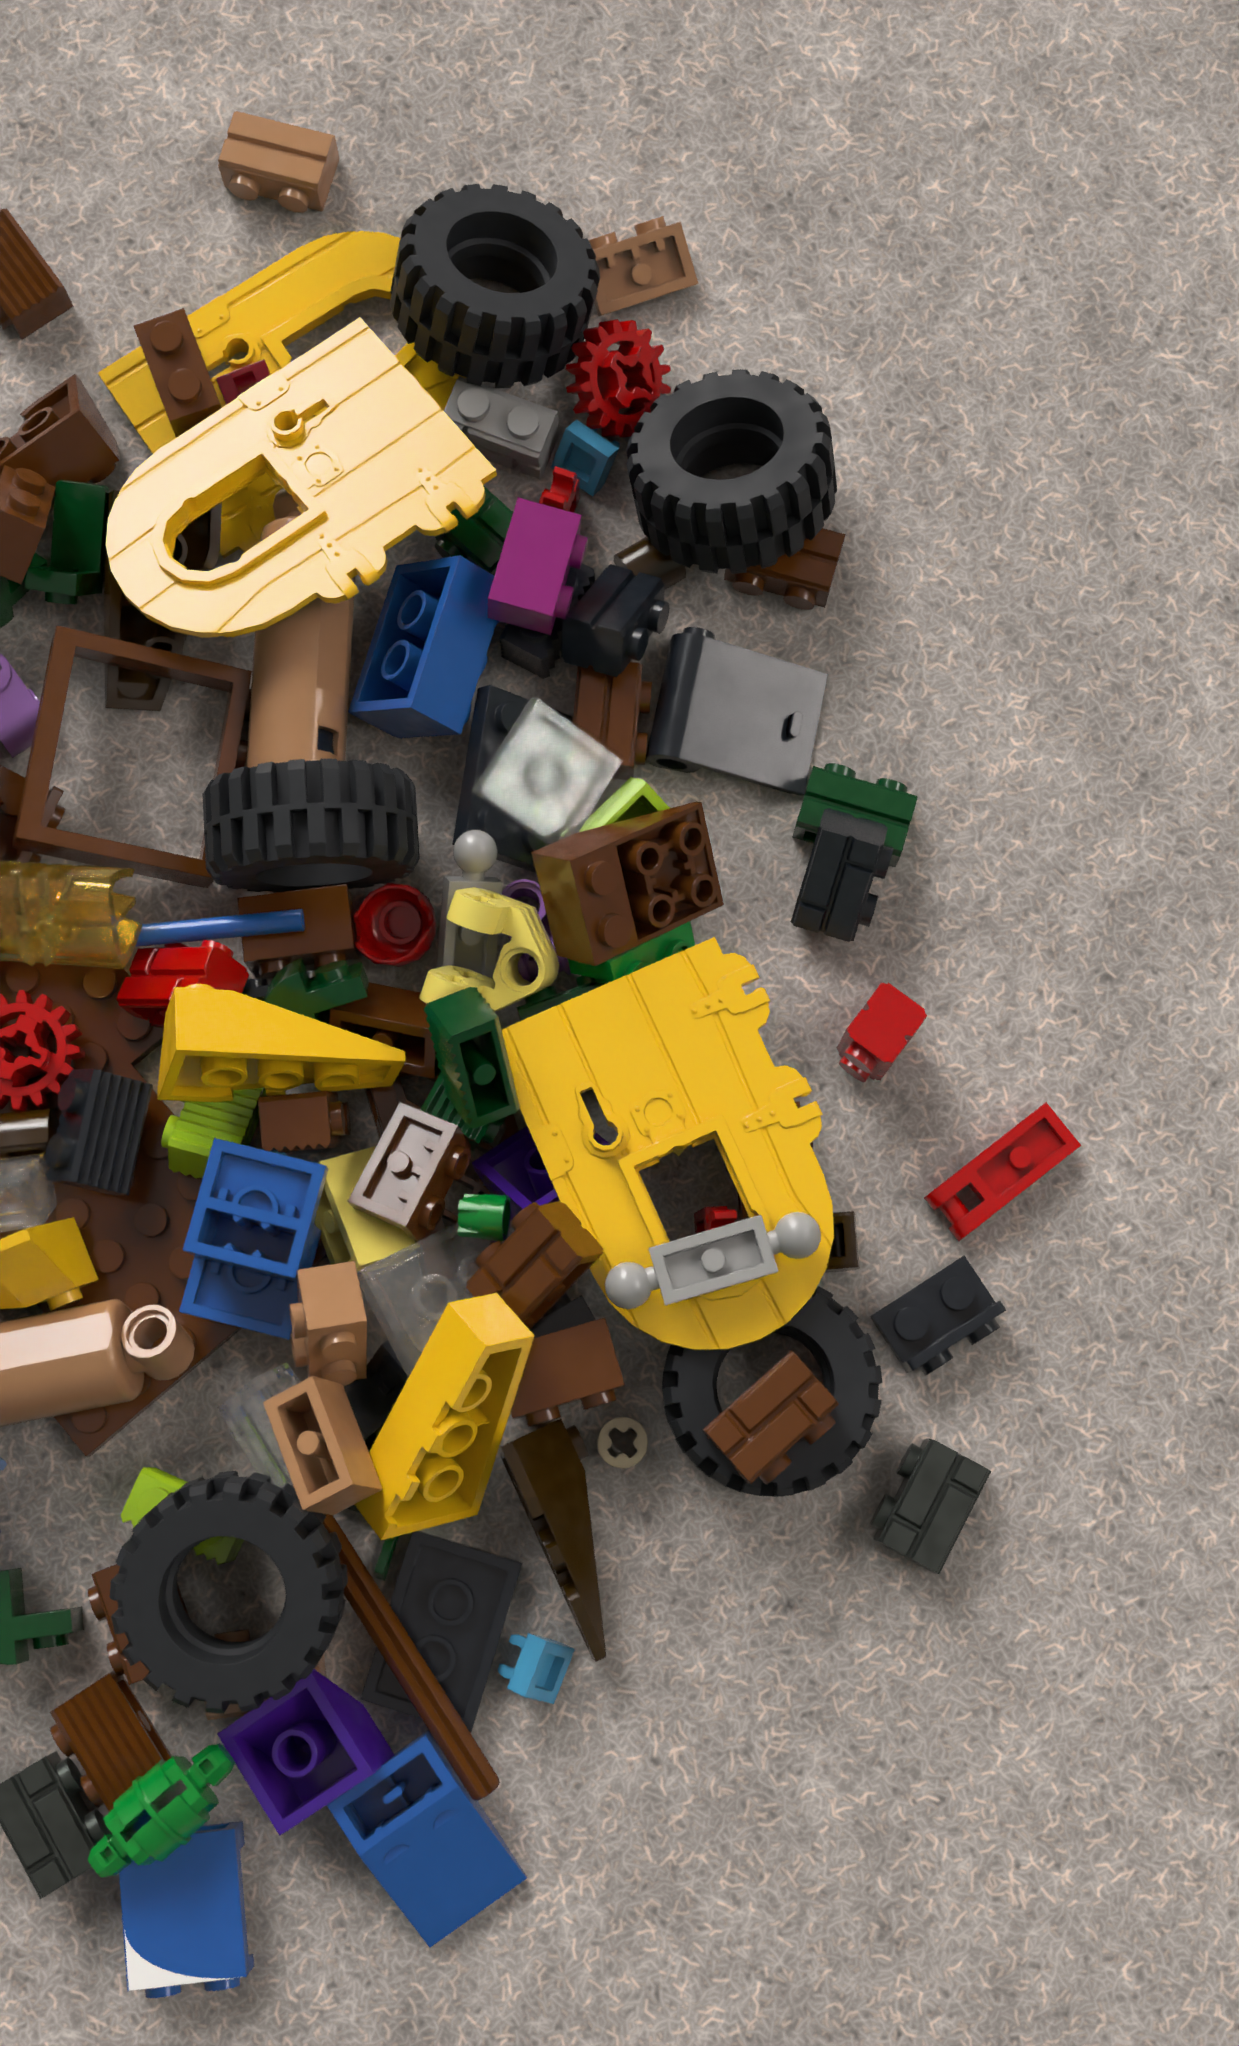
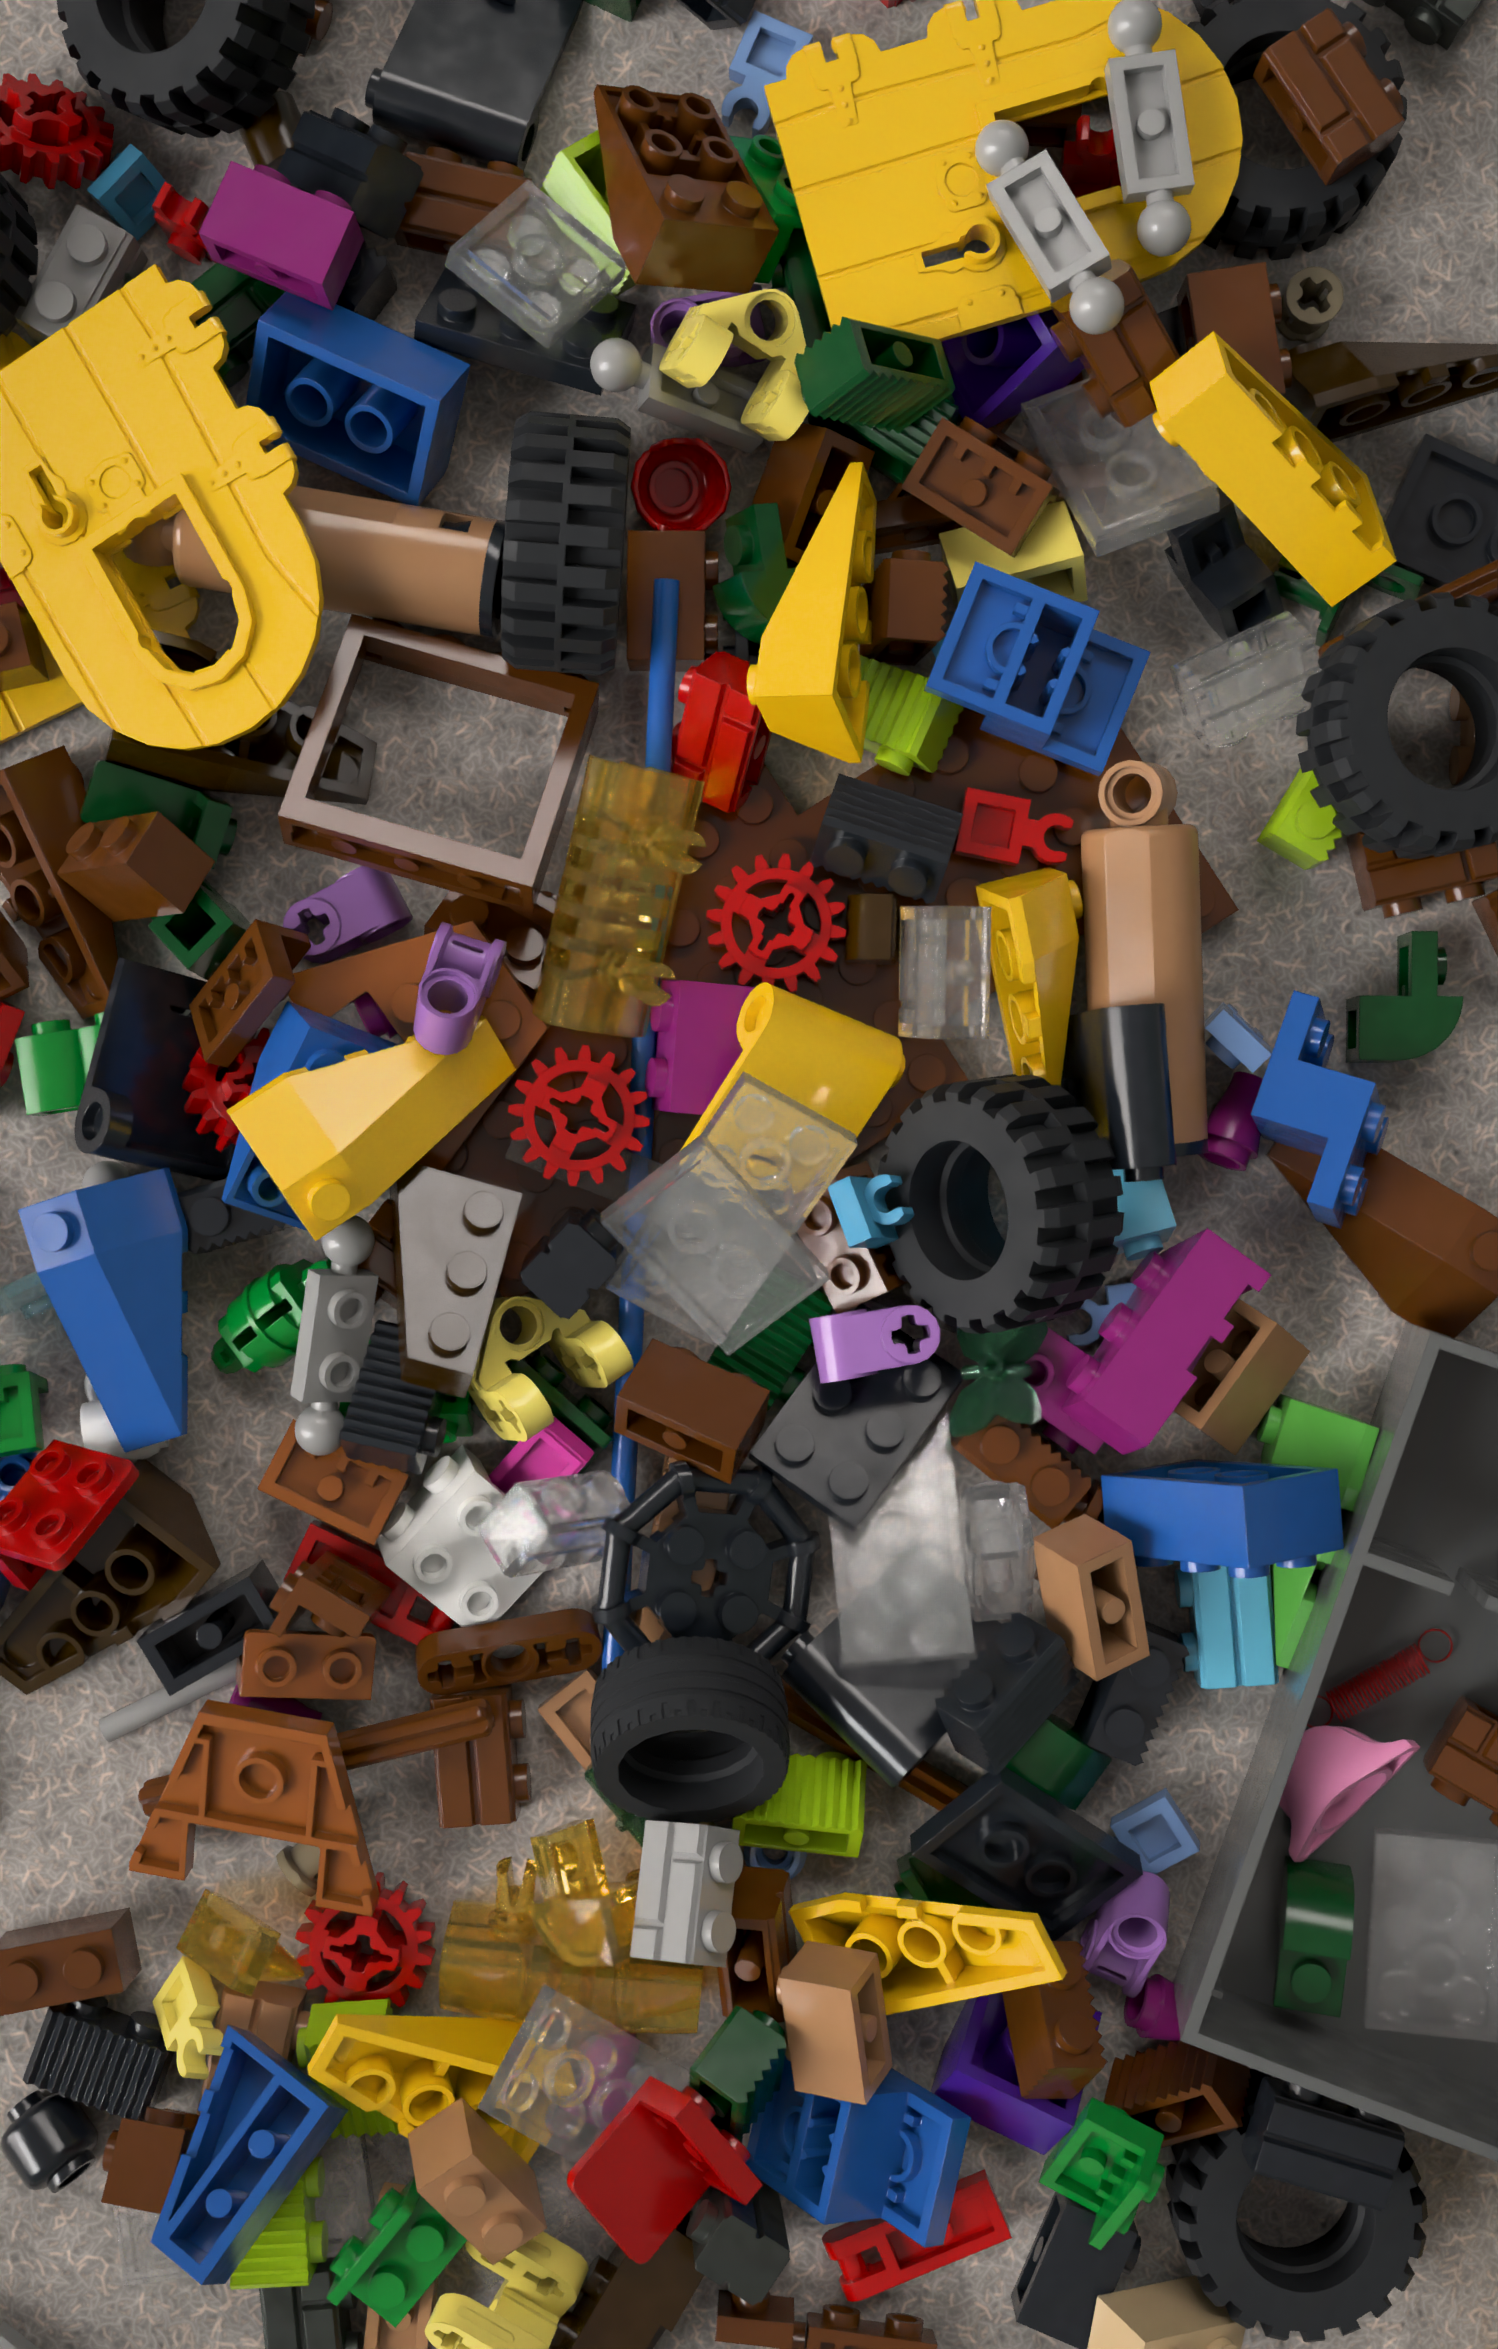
camera: 80 degrees left, 10 degrees up
(124, 1228) = (998, 828): none -> red plate
(322, 1446) = (1289, 607): medium nougat brick -> none
(330, 1323) = (1150, 589): medium nougat brick -> none
(484, 1216) = (1048, 404): green hose -> none
(609, 1184) = (1049, 227): none -> light grey plate
(769, 946) = (759, 62): none -> medium blue plate

